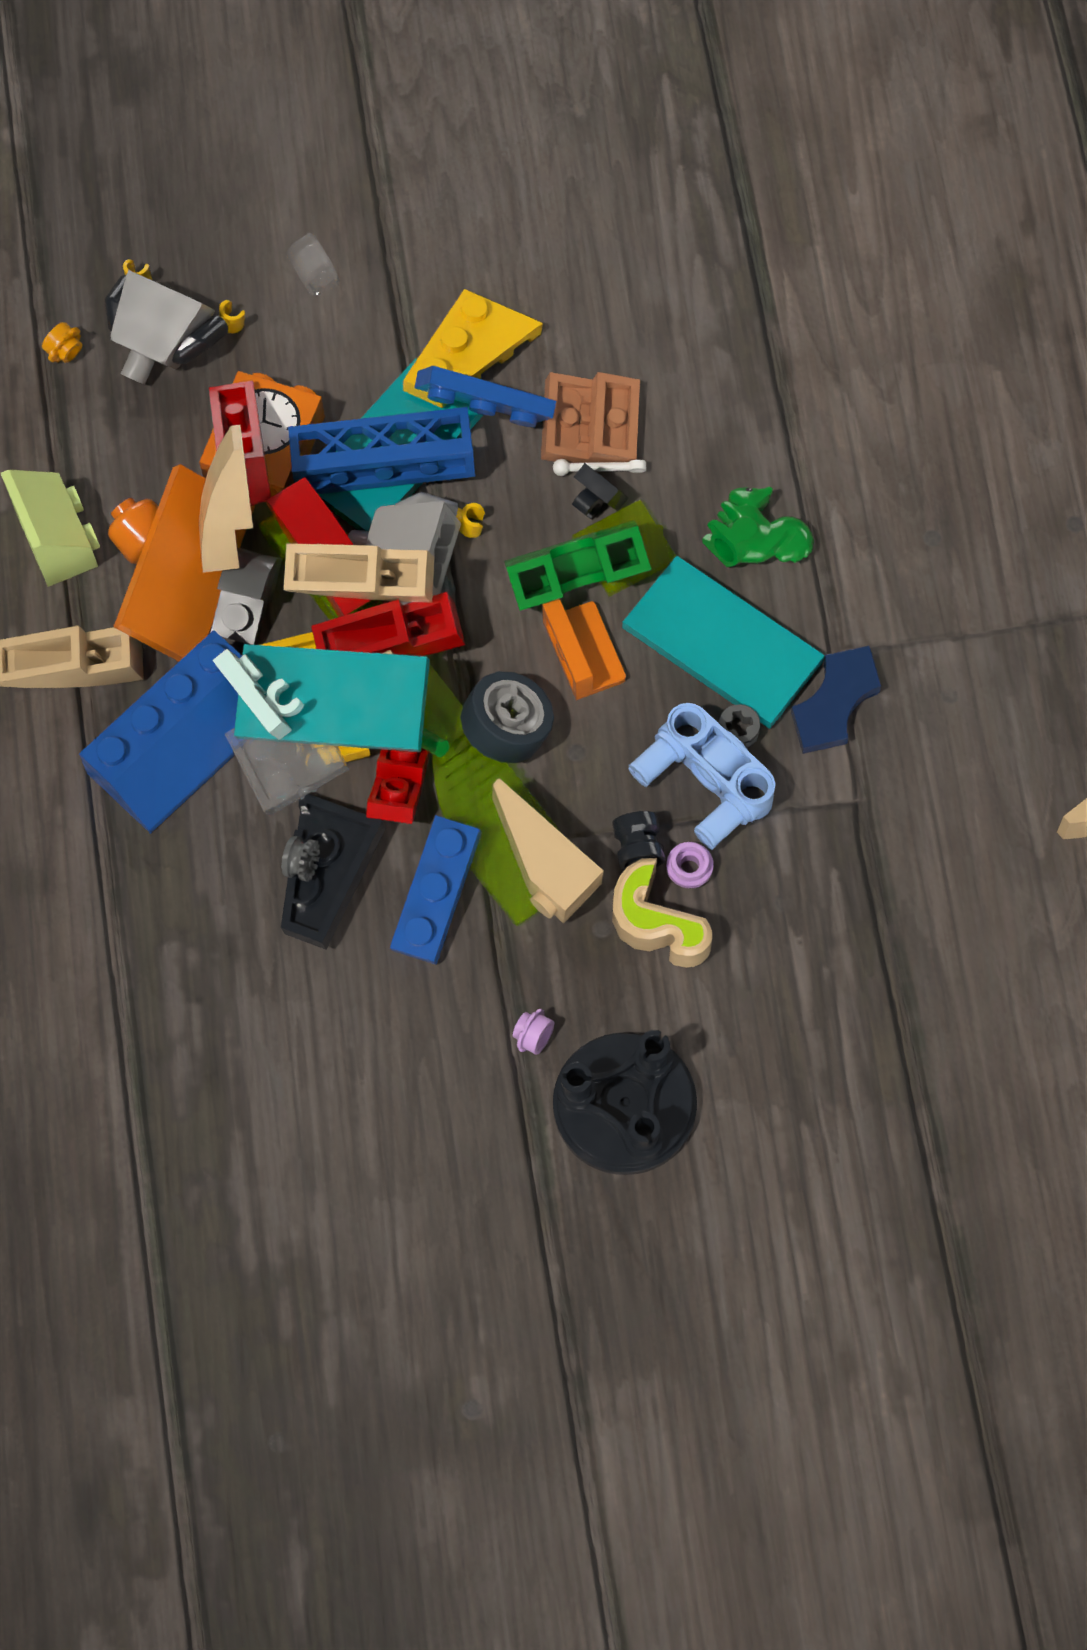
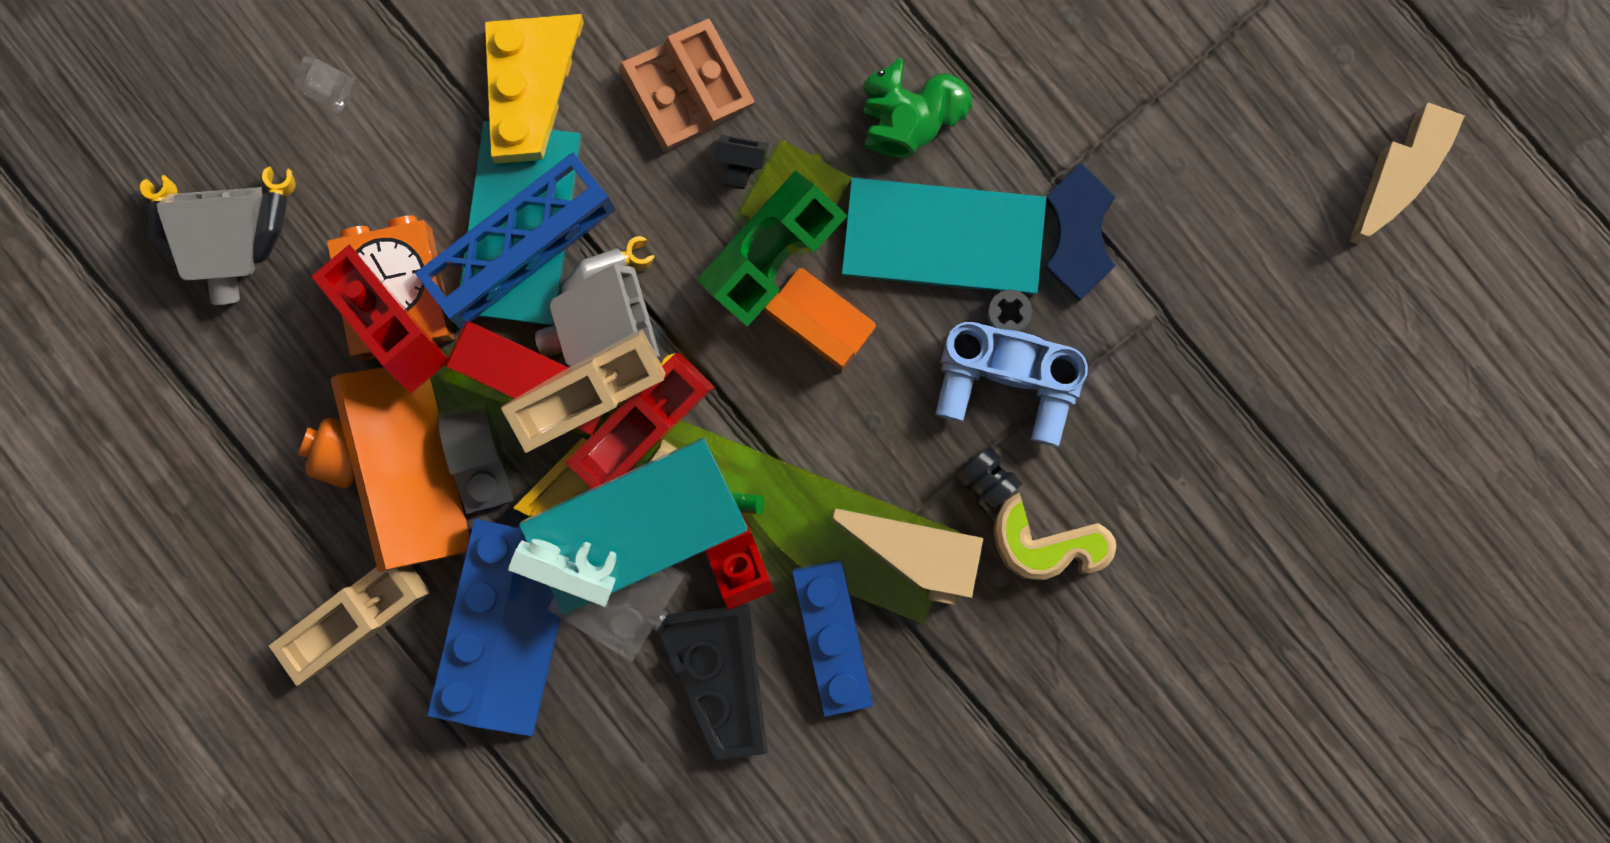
camera: 30 degrees left, 15 degrees up
(52, 524) = (247, 499): yellowish green slope -> none
(62, 343) = (134, 304): light orange plate -> none
(224, 505) = (413, 399): tan slope -> none
(300, 858) = (695, 689): dark grey bush -> none
(484, 396) = (581, 130): blue plate -> none
(507, 717) = (793, 457): black wheel -> none
(533, 1031) = (1001, 716): lavender plate -> none
(562, 467) = (689, 149): white hinge -> none
(625, 1102) = (1120, 730): black piece -> none
(689, 852) = (1060, 469): lavender plate -> none

